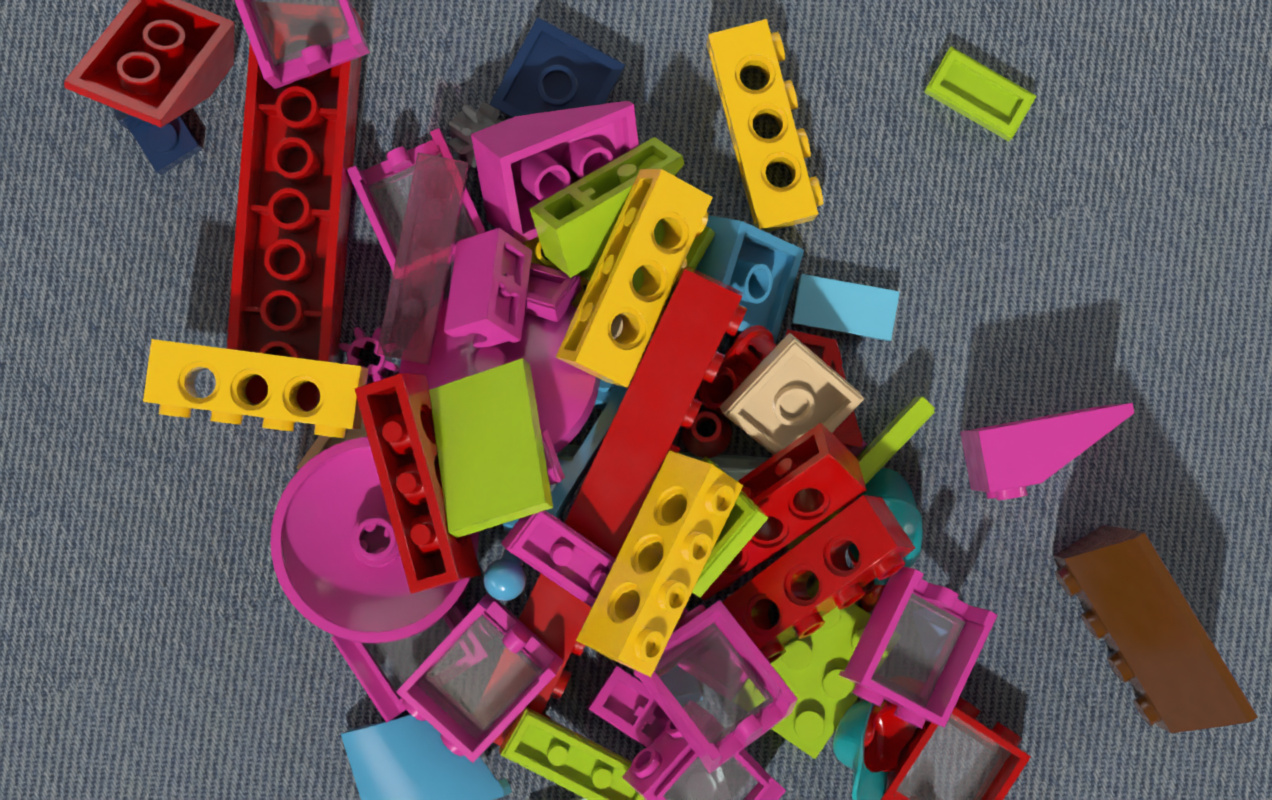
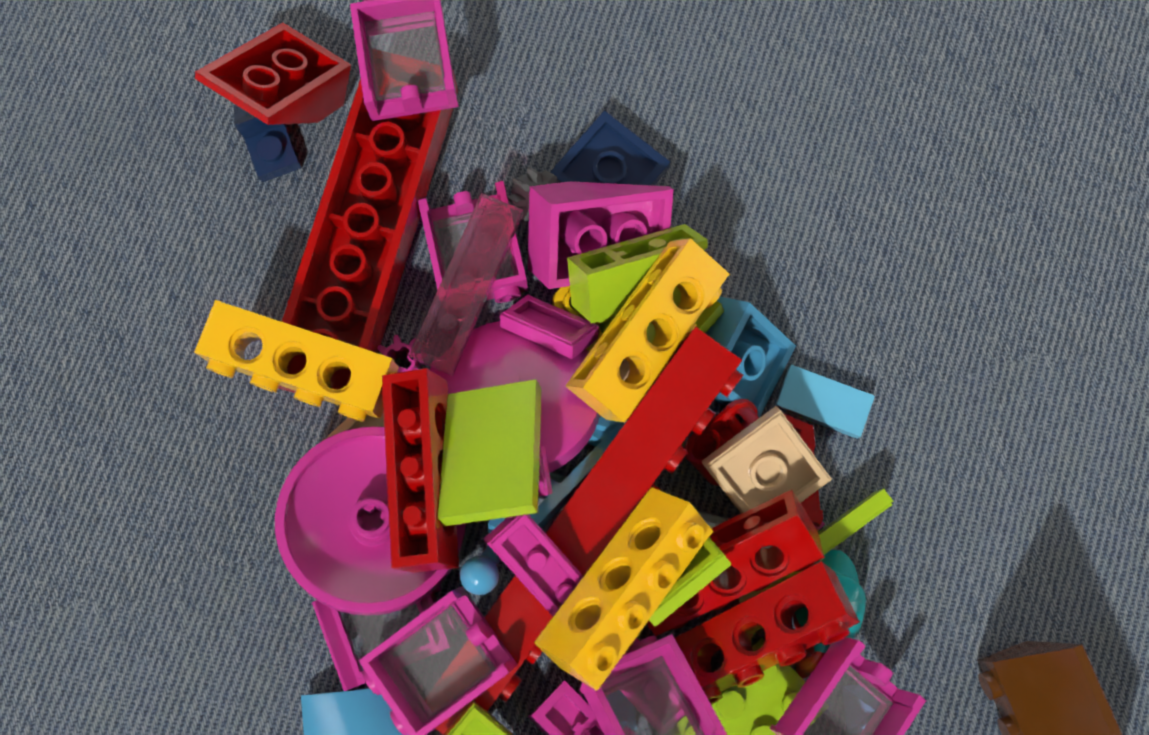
camera: 10 degrees right, 10 degrees down
(488, 288) = (518, 318): dark pink hinge -> none
(707, 446) = (692, 493): red cone -> none
(756, 47) = (783, 169): yellow brick -> none
(980, 94) = (968, 244): lime tile -> none
(1029, 451) = (965, 555): dark pink slope -> none

